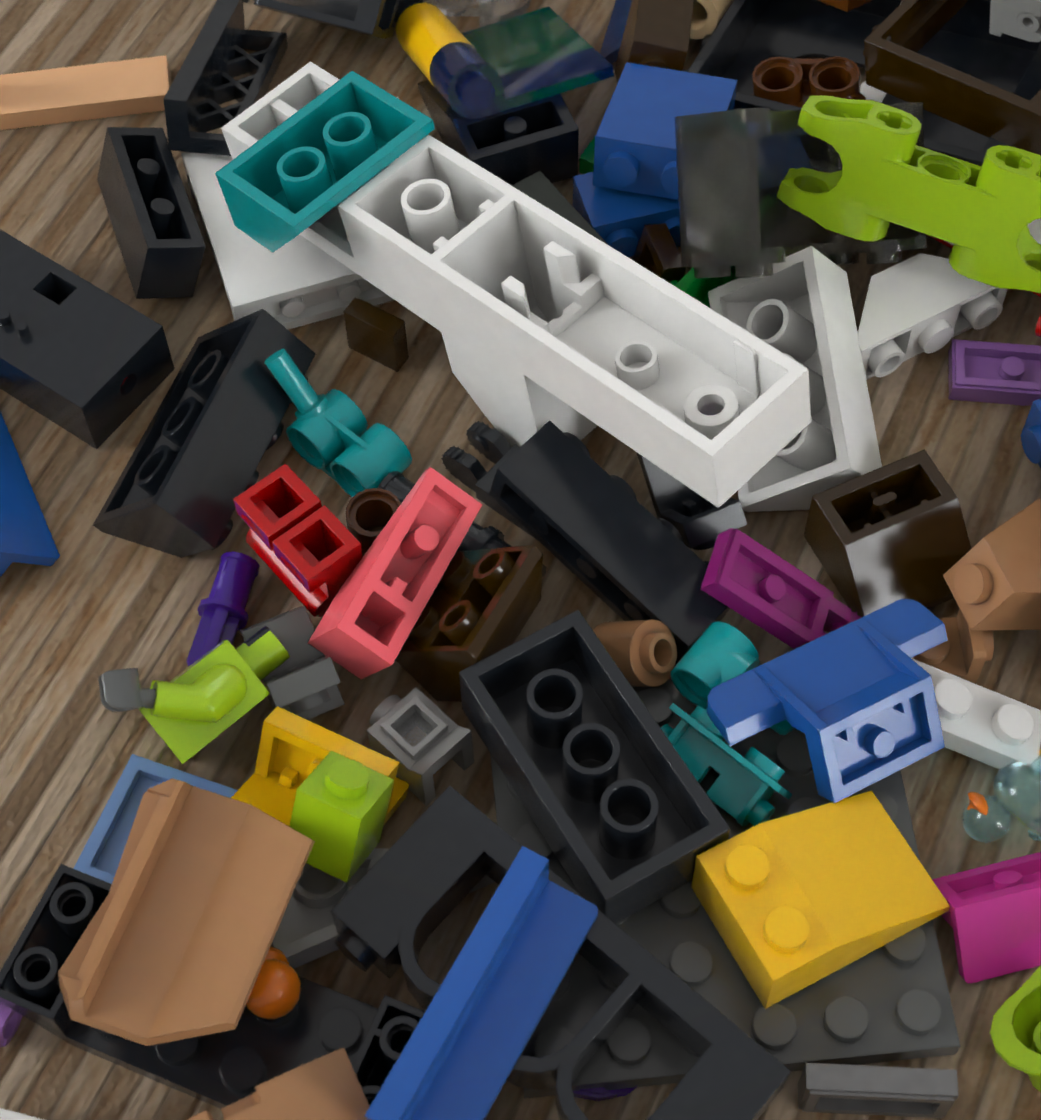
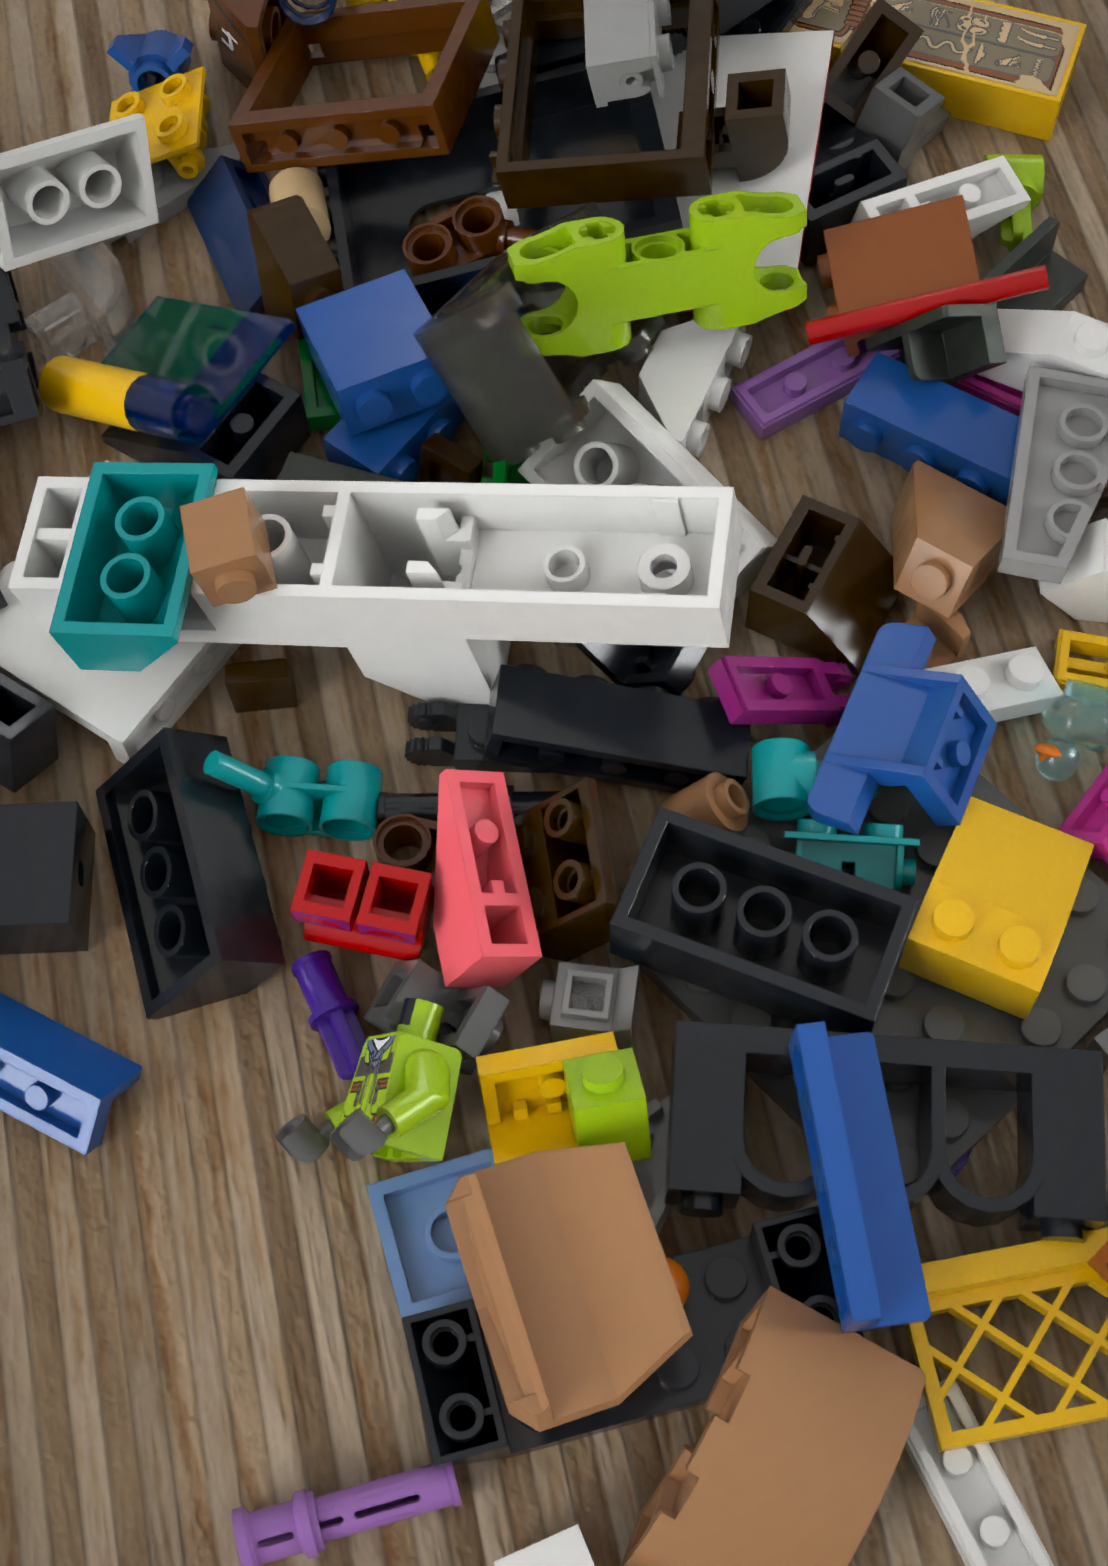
camera: 35 degrees left, 5 degrees up
(382, 182) = (228, 547): none -> medium nougat brick

